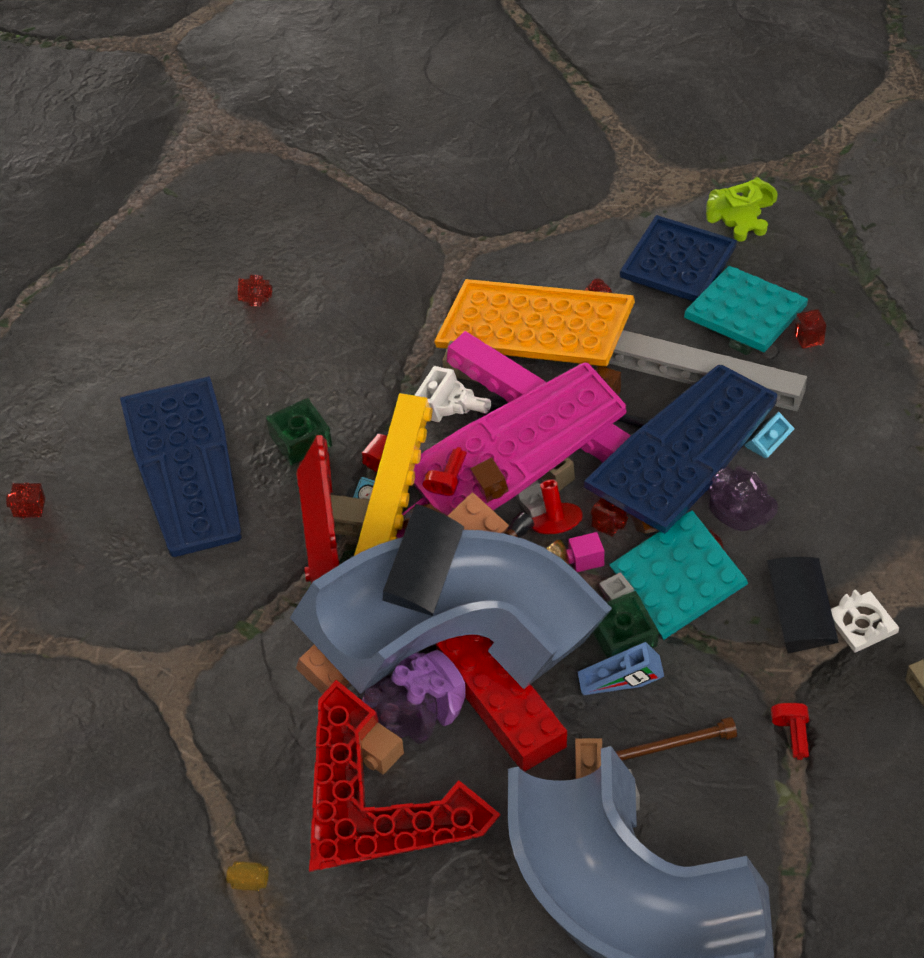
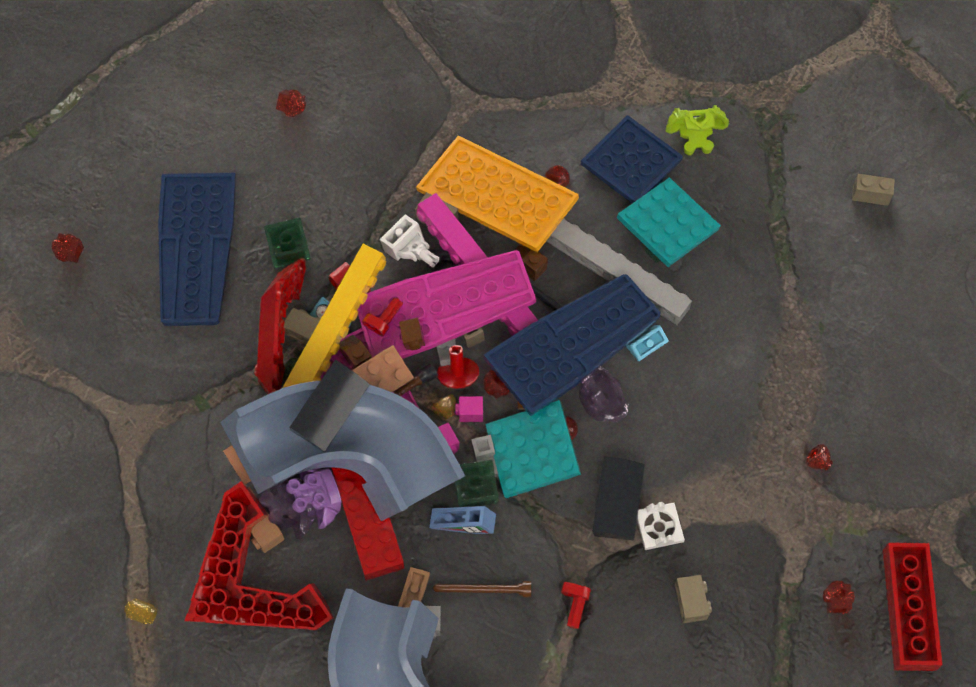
camera: 10 degrees right, 15 degrees up
(810, 328) = (711, 255): clear red brick -> none

